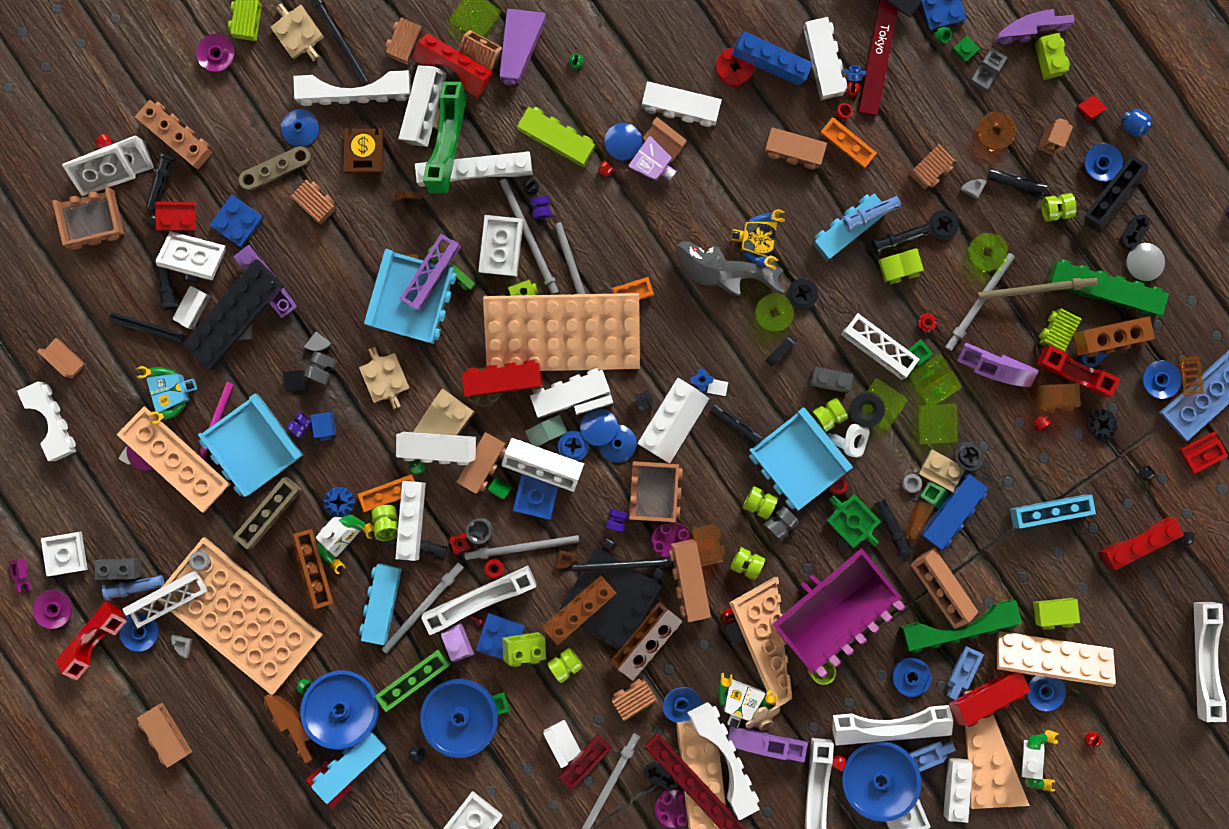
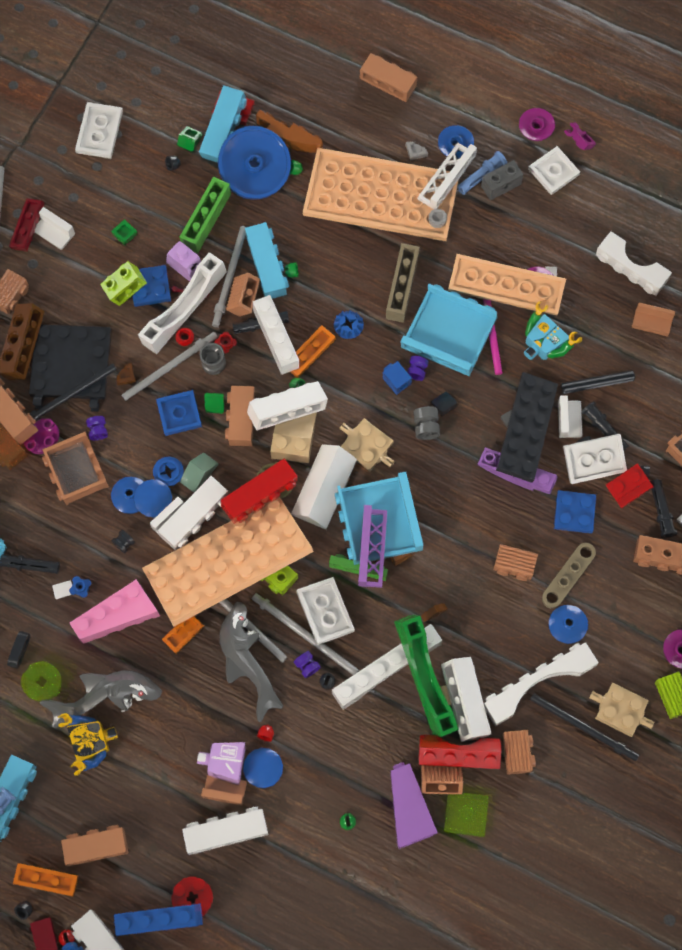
camera: 155 degrees right, 15 degrees down
(76, 656) = (494, 96): red arch -> none
(311, 569) = (340, 257): dark orange brick -> none
(317, 343) = (442, 444): light grey tile -> none
(337, 535) = (332, 294): torso -> none
(360, 584) = (291, 270): none -> green hinge
(363, 147) = (499, 635): reddish brown container -> none
(385, 522) = (297, 324): lime wheel -> none
(387, 773) = (189, 138): none -> green slope
(419, 579) = (243, 294): none -> nougat brick
(442, 359) = (317, 498): none -> white slope
(459, 718) = (150, 204): blue dish -> none
(542, 464) = (186, 440): white brick -> none
(556, 137) = (327, 737): lime brick -> none
(565, 665) = (82, 288): lime wheel -> none
(579, 610) = (90, 335): dark orange brick -> none
(593, 248) = (241, 662): none -> dark grey piece
(673, 420) = (89, 537): white slope -> none
(677, 337) = (115, 613): none -> bright pink wedge
(811, 296) = (14, 715): black gear -> none
(846, 109) = (62, 912): red hinge -> none
(877, 127) = (23, 910): none -> black hinge

